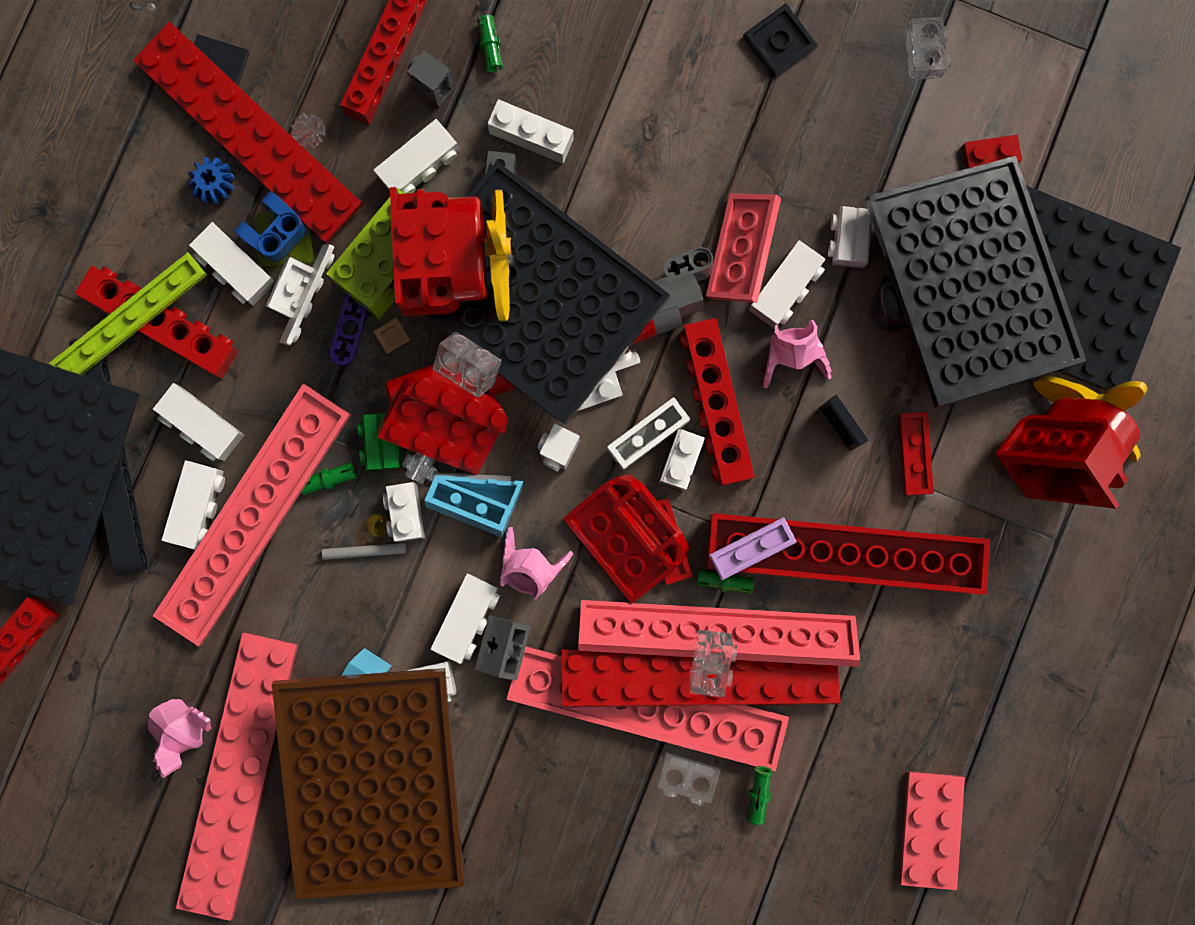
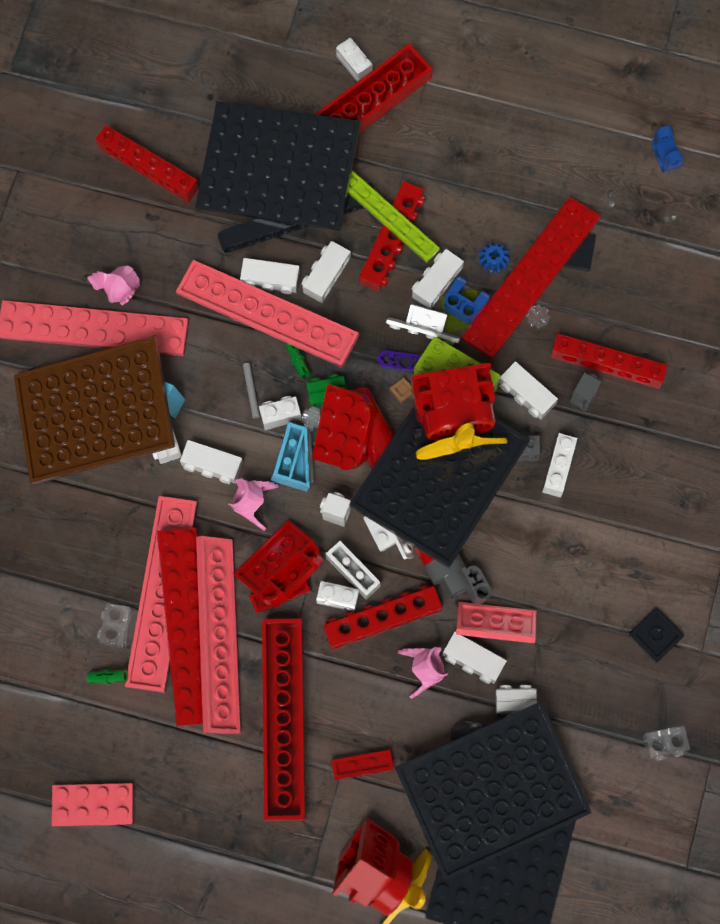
camera: 90 degrees right, 10 degrees down
(381, 530) = (265, 396): clear yellow hinge -> none
(466, 364) = (382, 434): clear brick -> none
(490, 43) = (620, 430): green pin -> none
(502, 648) = (193, 488): dark grey brick -> none
(709, 663) = (195, 624): clear brick -> none
(732, 583) = (255, 638): green pin -> none
(752, 548) = (279, 648): lavender tile -> none
(843, 423) = (375, 707): black tile -> none
(991, 150) = (596, 800): red plate -> none

